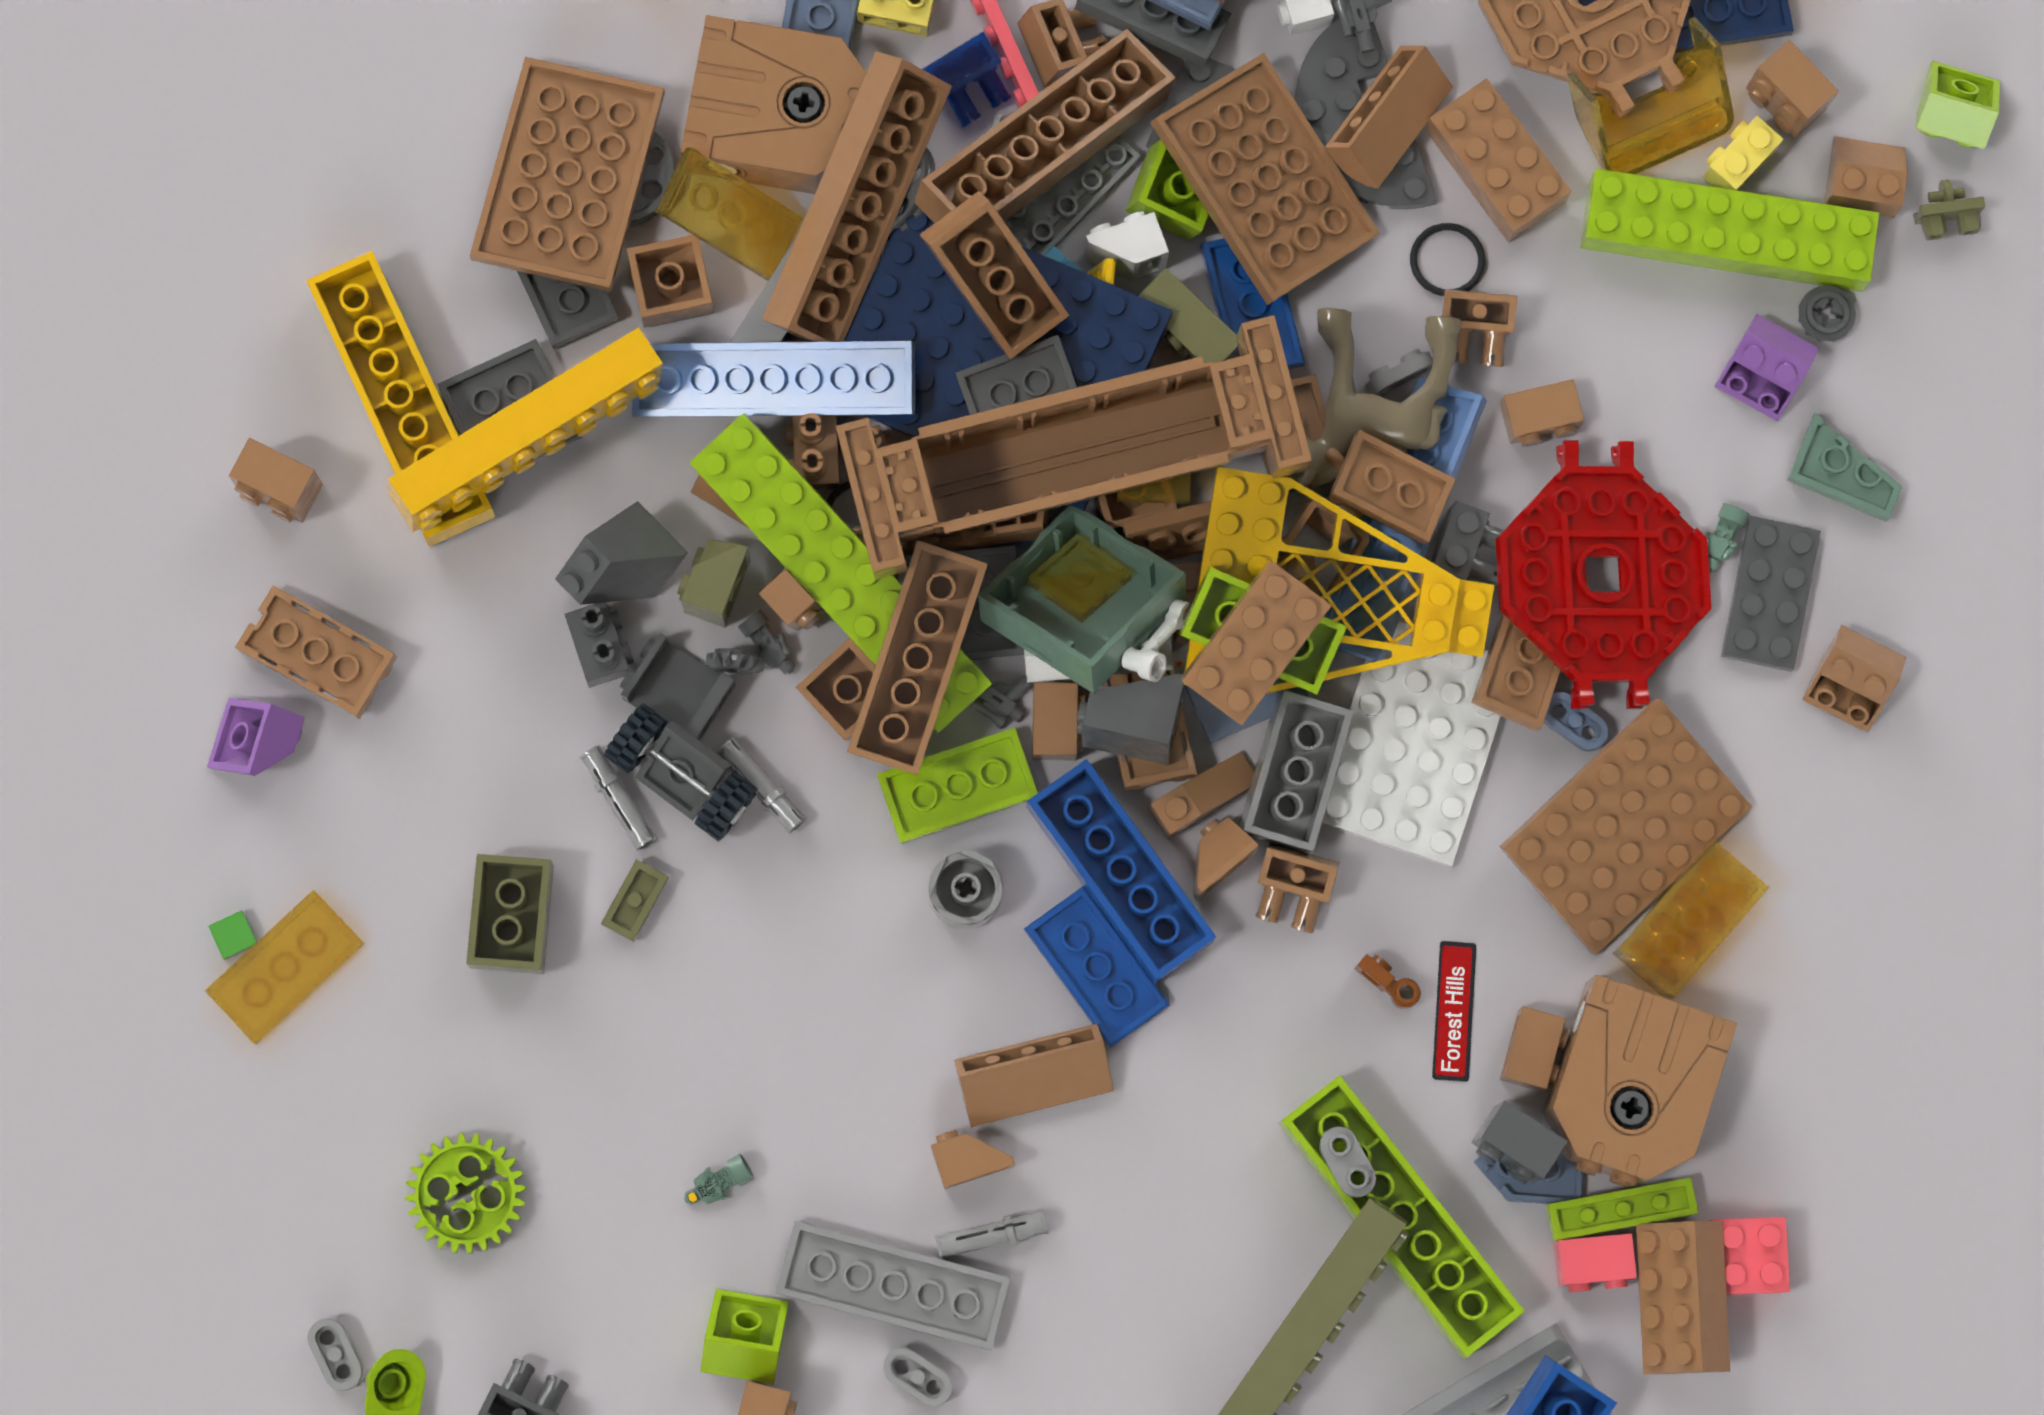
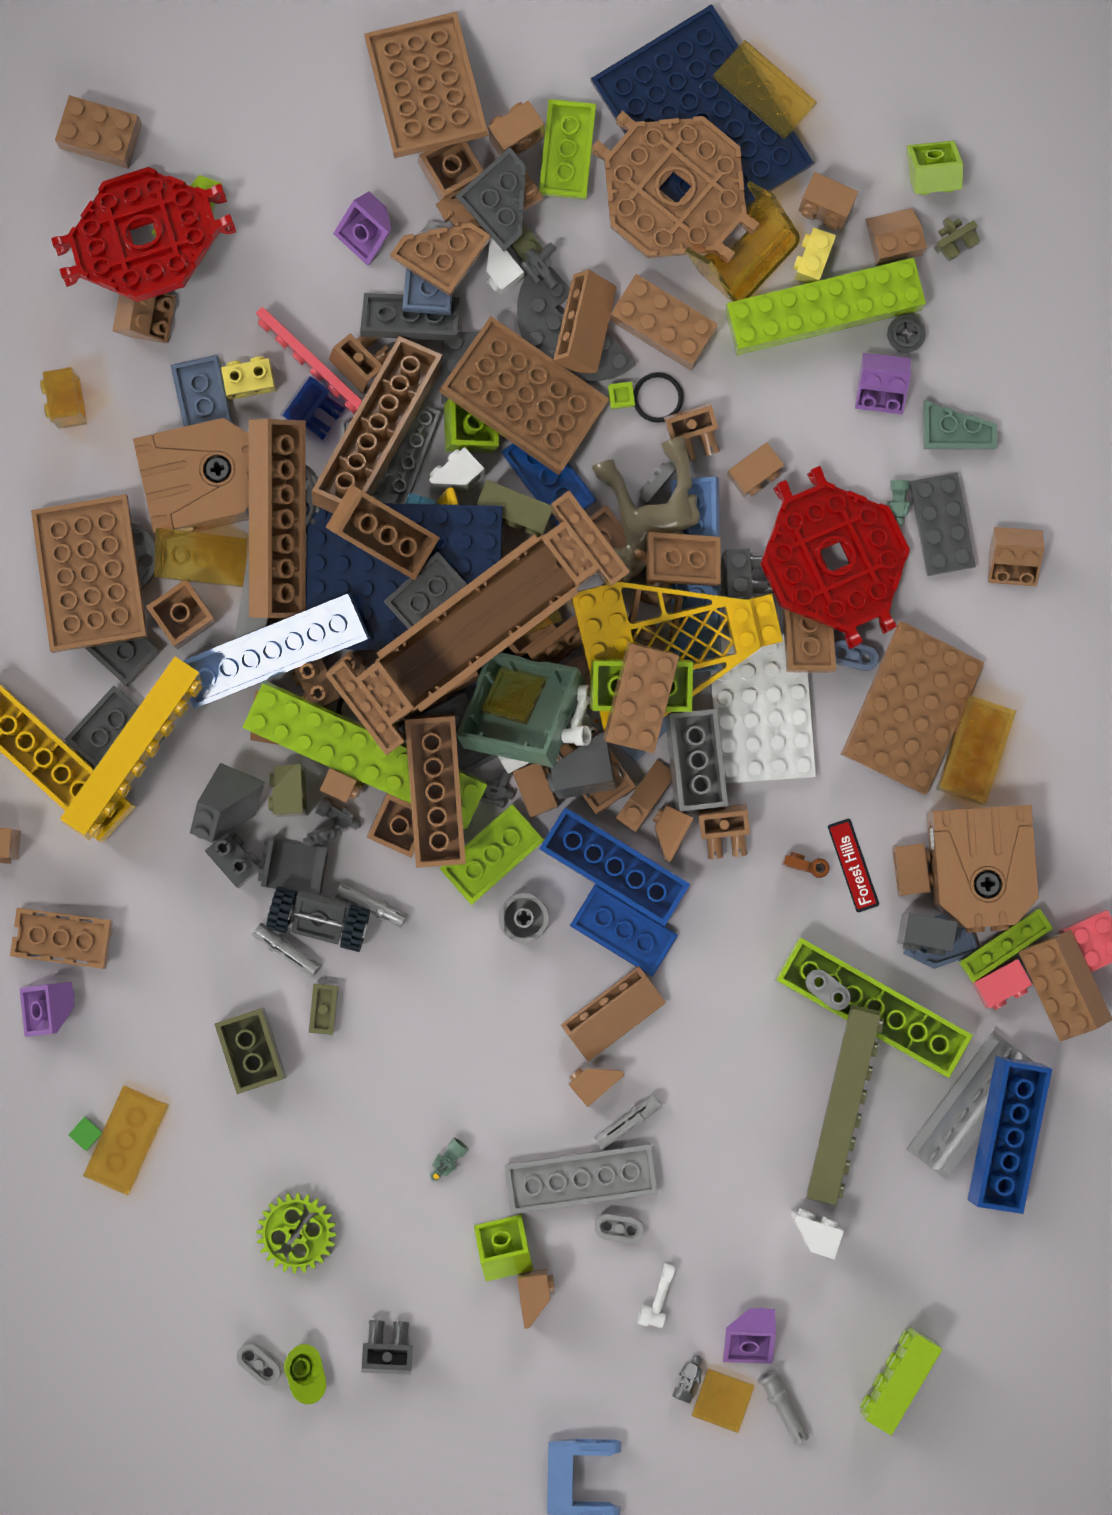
camera: 15 degrees left, 5 degrees up
(1398, 236) = (621, 395): none -> lime plate

